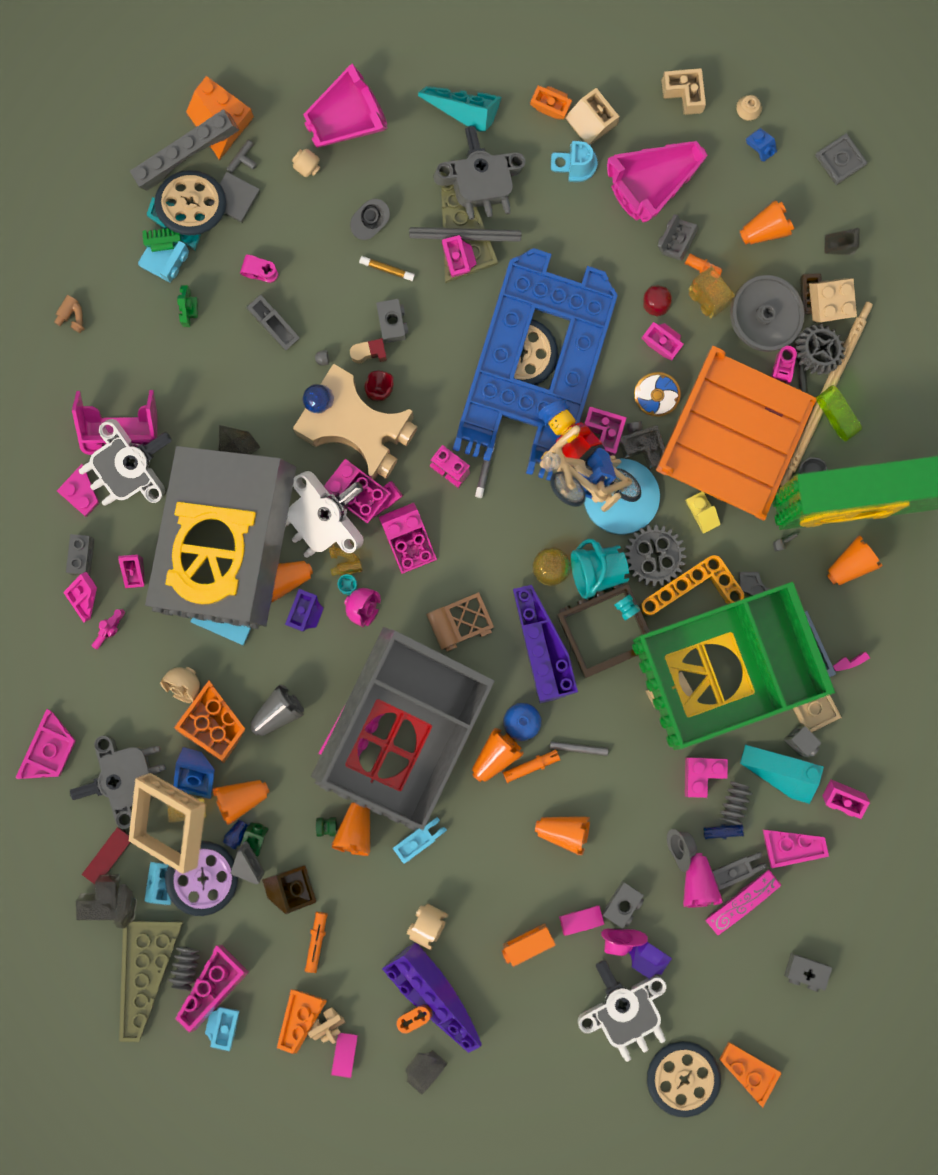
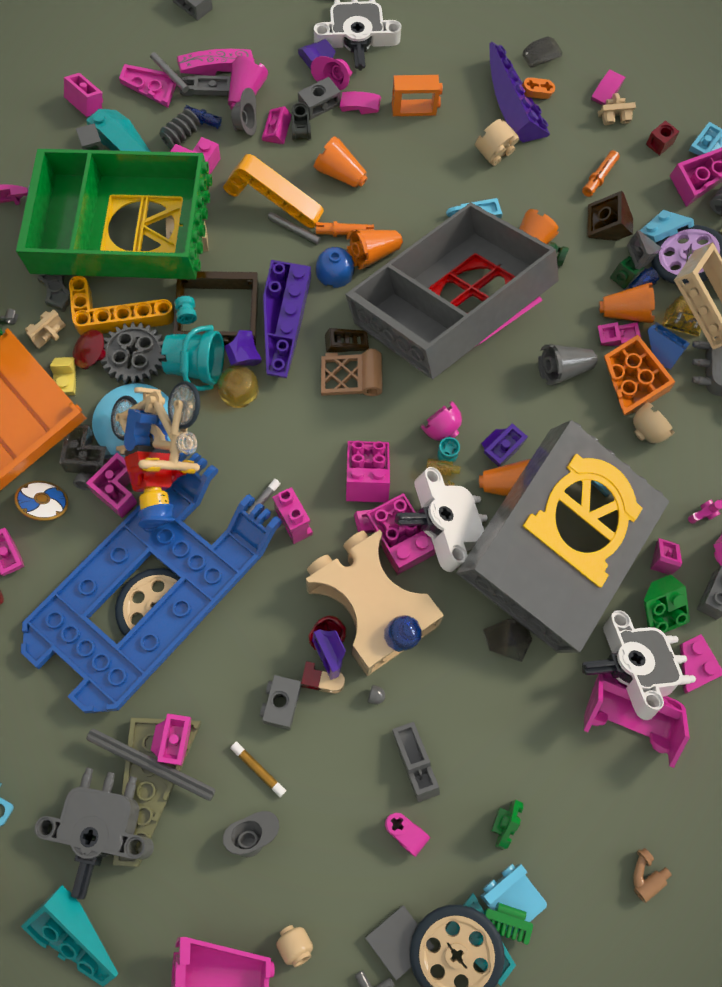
camera: 155 degrees left, 15 degrees down
(121, 525) = (666, 604): none -> green slope
(235, 905) = (665, 225): none -> medium azure wing
(240, 768) = (616, 335): none -> dark pink slope
(273, 1005) = (662, 137): none -> dark red brick
(298, 1019) = (638, 123): orange wing -> none
(369, 367) = (330, 651): none -> dark purple slope
(495, 650) = (337, 346): none -> dark brown slope
(558, 592) = (243, 350): none -> dark purple slope
(611, 768) = (275, 188): none -> light orange beam
(625, 864) = (300, 121): none -> pearl dark grey piece
(649, 857) = (277, 125): none -> dark pink slope
(693, 541) = (89, 349): none -> dark red dish
(739, 544) = (45, 329): none -> tan hips
(779, 864) = (169, 72): none -> flat silver bar

